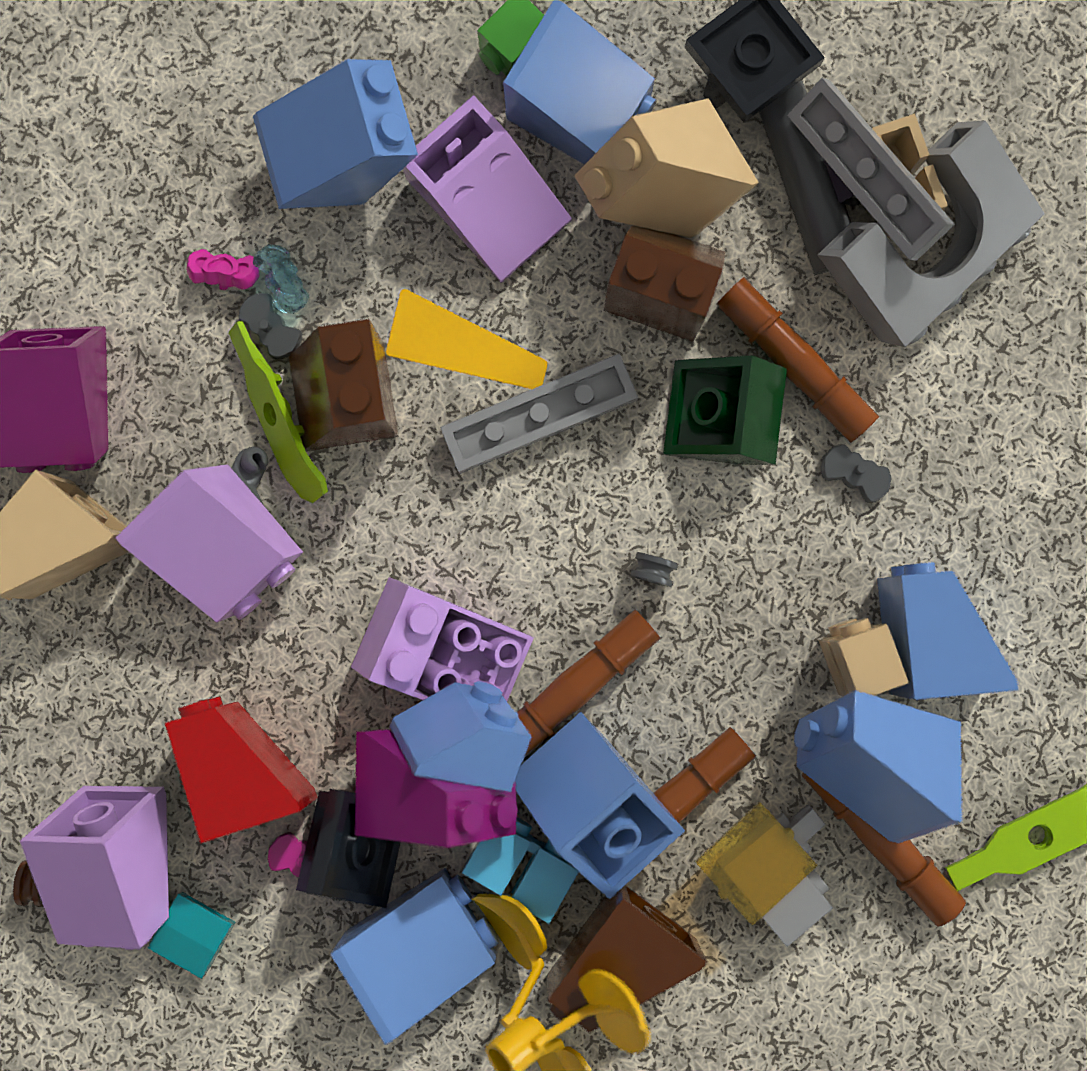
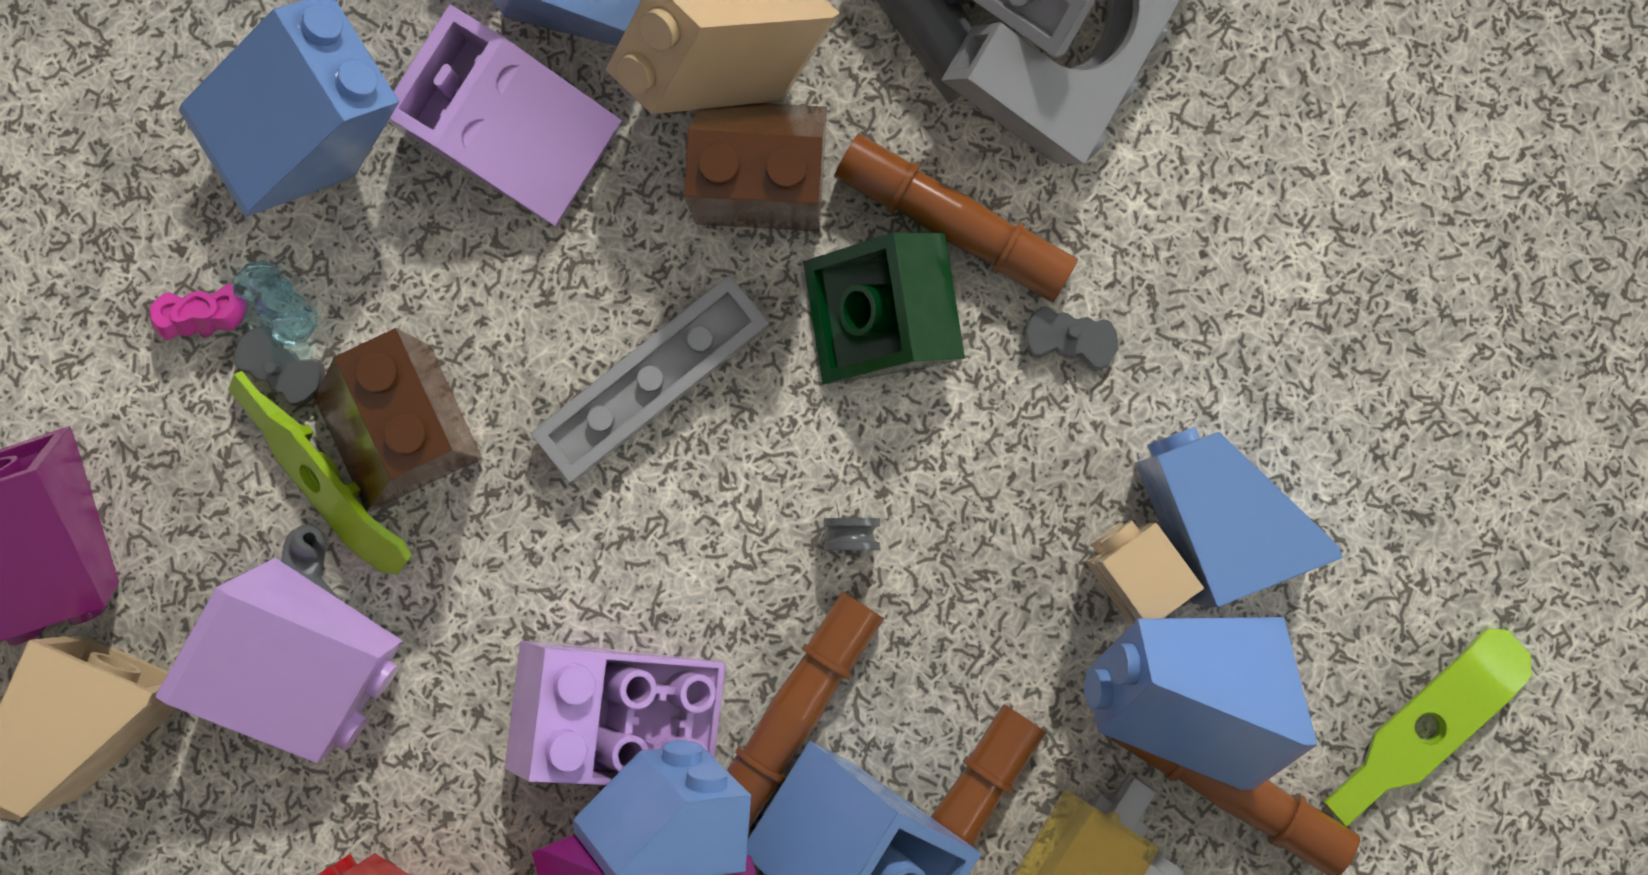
camera: 15 degrees left, 0 degrees up
(444, 340) = (510, 319): yellow sticker -> none

